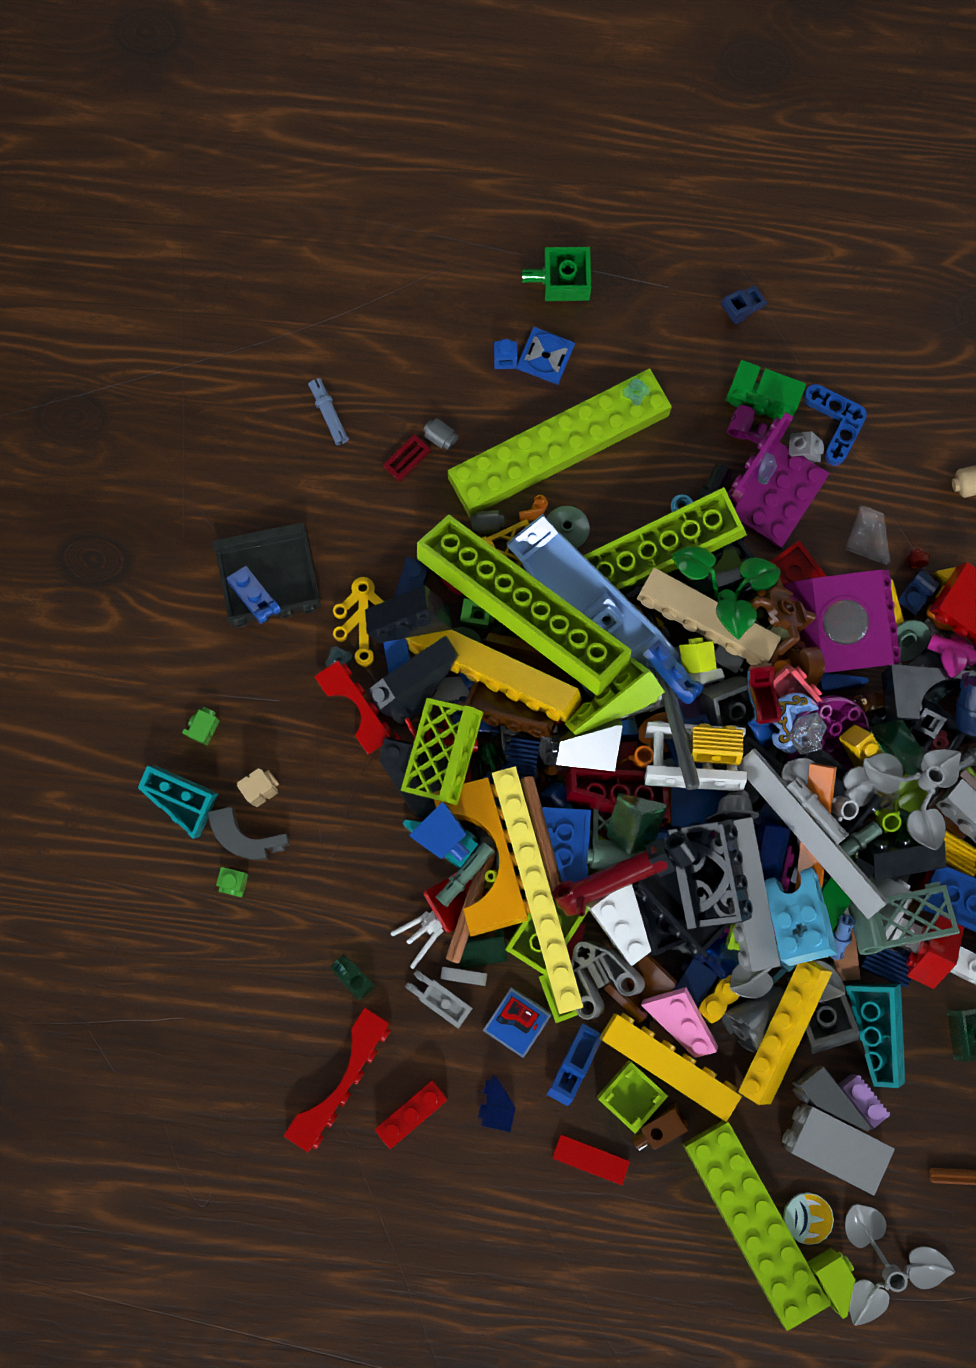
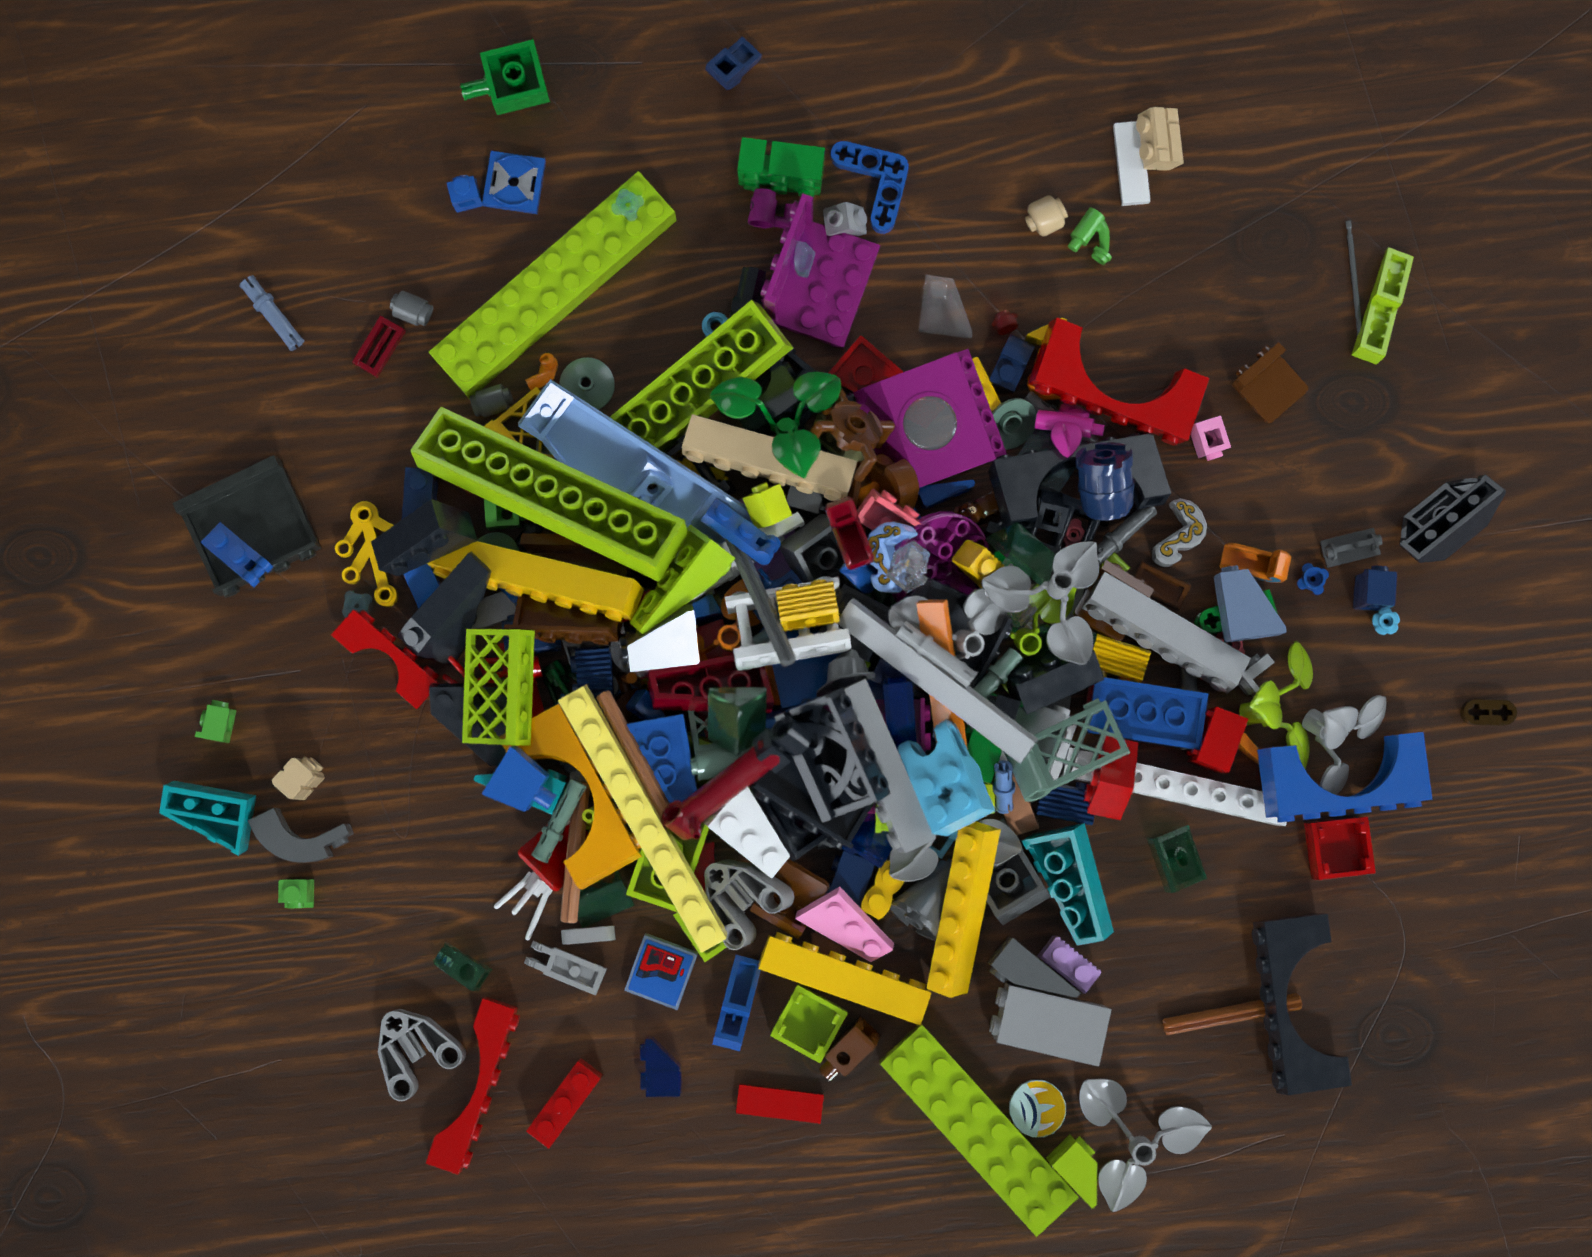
camera: 10 degrees left, 5 degrees up
(276, 1042) = (392, 1059): none -> light grey connector

